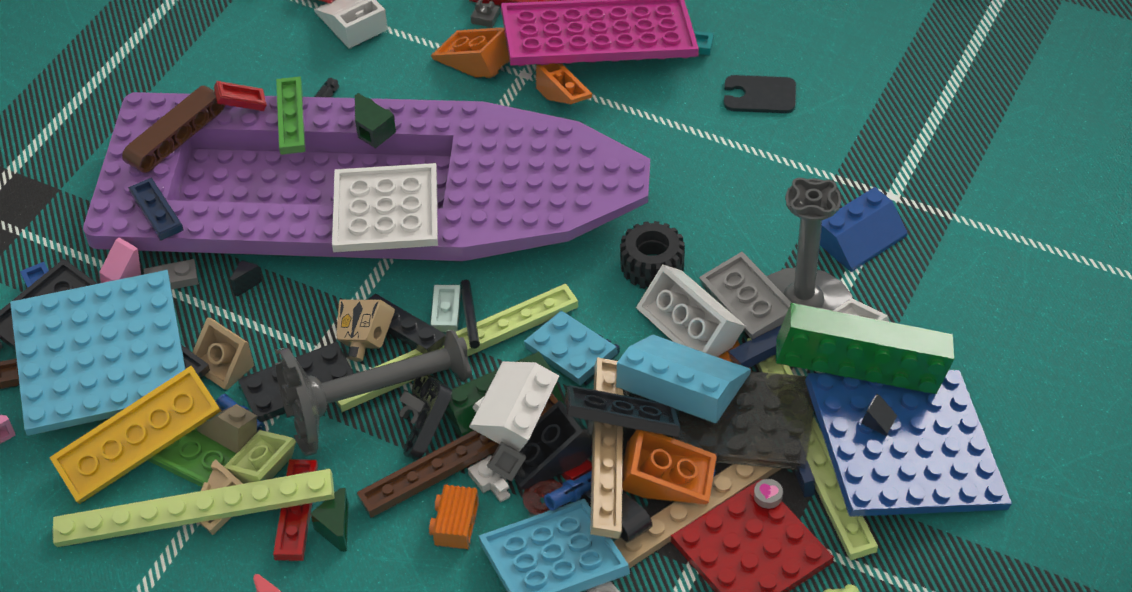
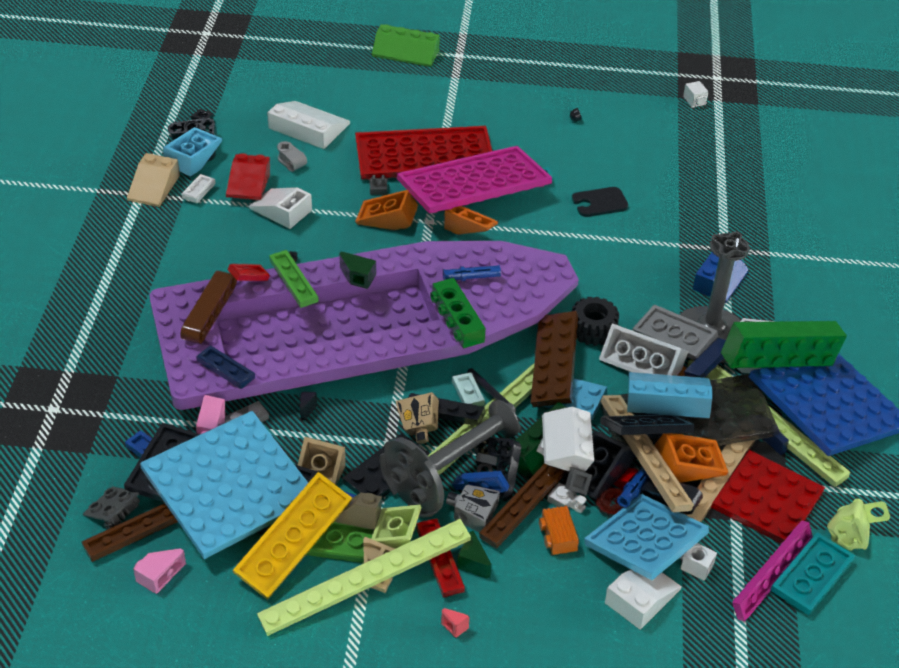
camera: 25 degrees left, 5 degrees down
(371, 456) = (474, 506): none -> light grey torso
(385, 207) = (402, 327): white plate -> none
(391, 430) = (491, 480): none -> blue hinge
(460, 205) = (458, 313): none -> green brick
(509, 156) = (472, 273): none -> blue pin
(566, 294) = (554, 359): none -> reddish brown plate
(768, 493) = (763, 456): light grey tile -> none
(879, 416) = (812, 386): black slope -> none

